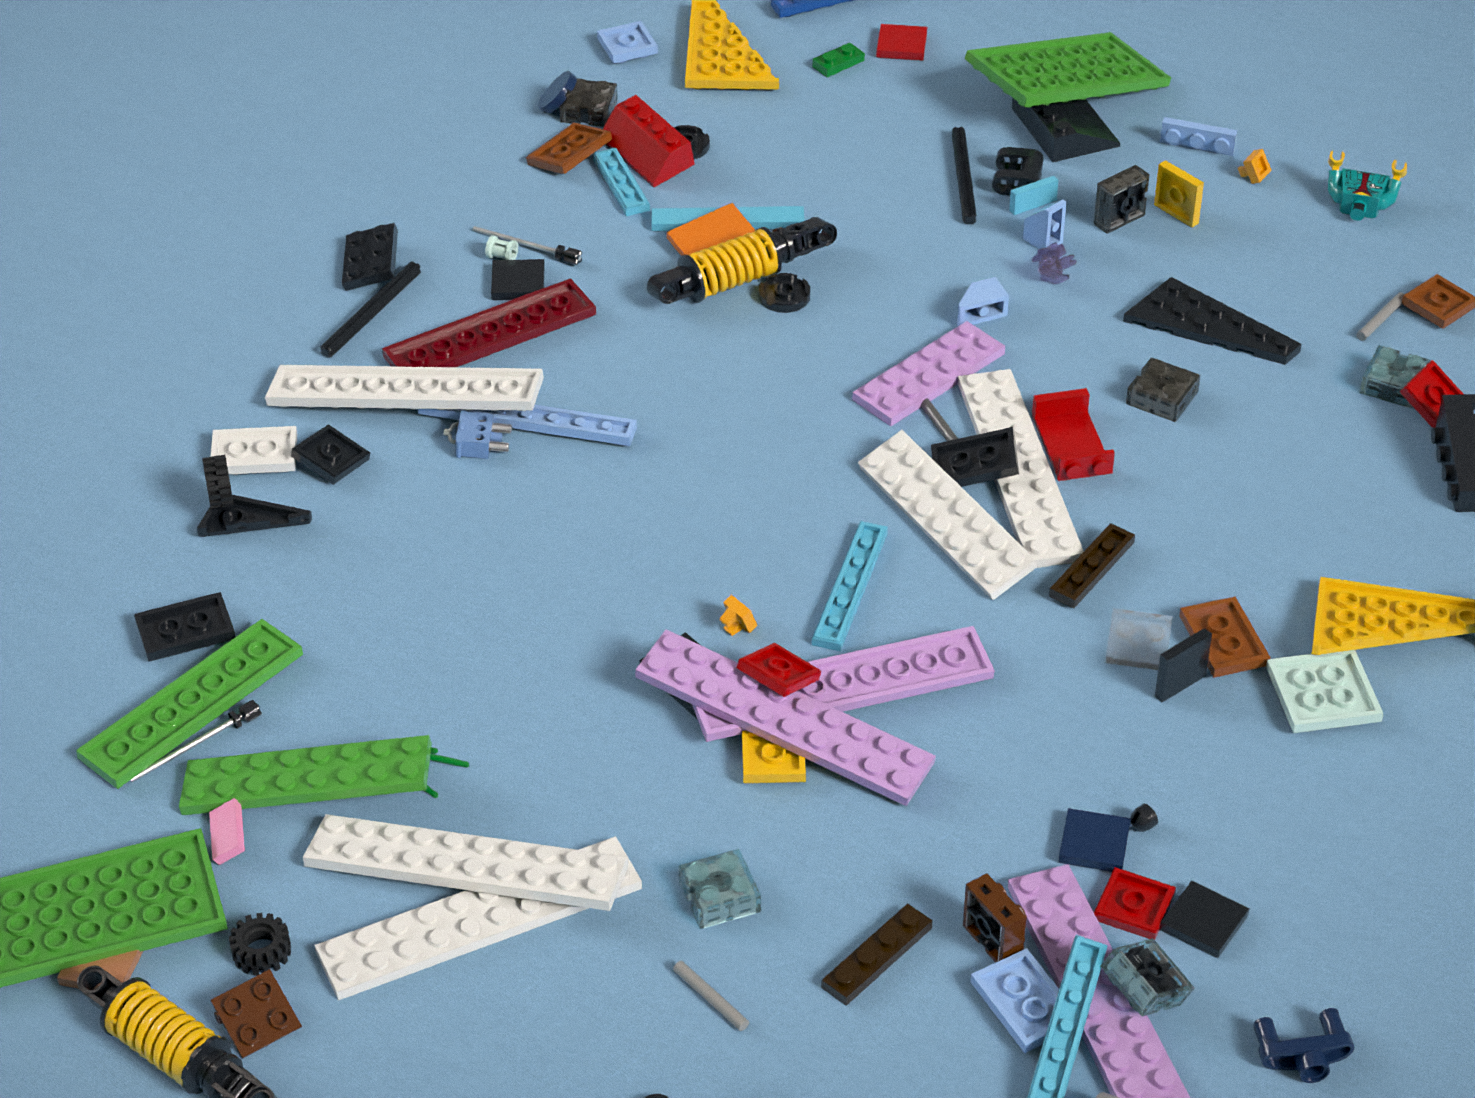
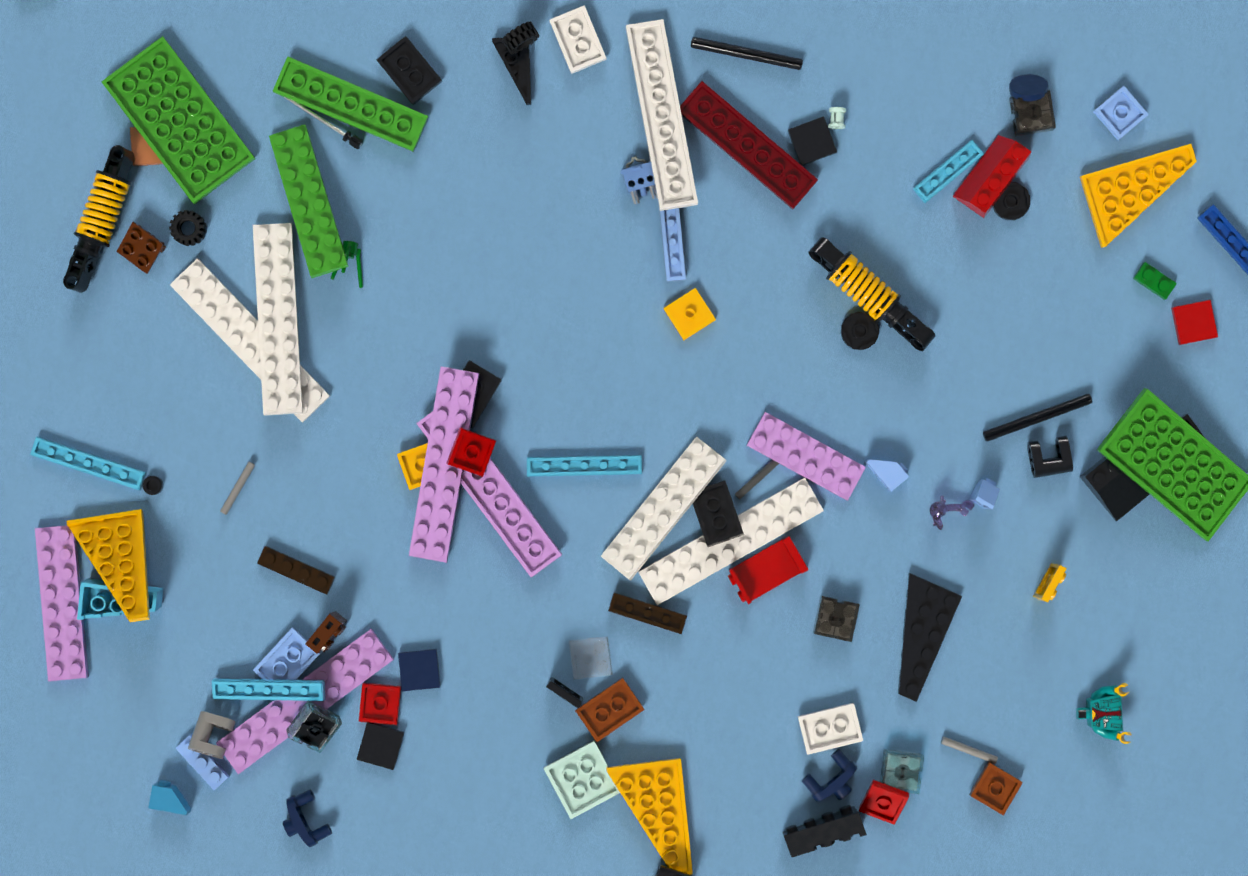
camera: 75 degrees right, 45 degrees up
(226, 831) = (259, 172): bright pink tile -> none
(330, 454) = (589, 91): black tile -> none
(370, 256) = (798, 29): black plate -> none
(569, 148) = (971, 120): dark orange tile -> none
(570, 255) = (848, 169): piece -> none
(685, 434) = (689, 314): none -> yellow plate
(709, 230) = (900, 261): orange tile -> none
(719, 888) = (310, 476): clear light blue piece -> none
(737, 617) = (527, 406): light orange tile -> none
(770, 217) = (929, 263): medium azure tile -> none
(1033, 195) = (1021, 473): medium azure tile -> none
(1121, 199) = (1034, 545): clear smoke piece -> none
(1144, 818) = (443, 695): black hinge -> none
(1198, 136) = (1136, 578): light blue plate -> none
(1255, 166) = (1113, 629): light orange tile -> none
(1316, 427) = (830, 728): none -> white plate
(1397, 436) = (837, 784): none -> dark blue connector

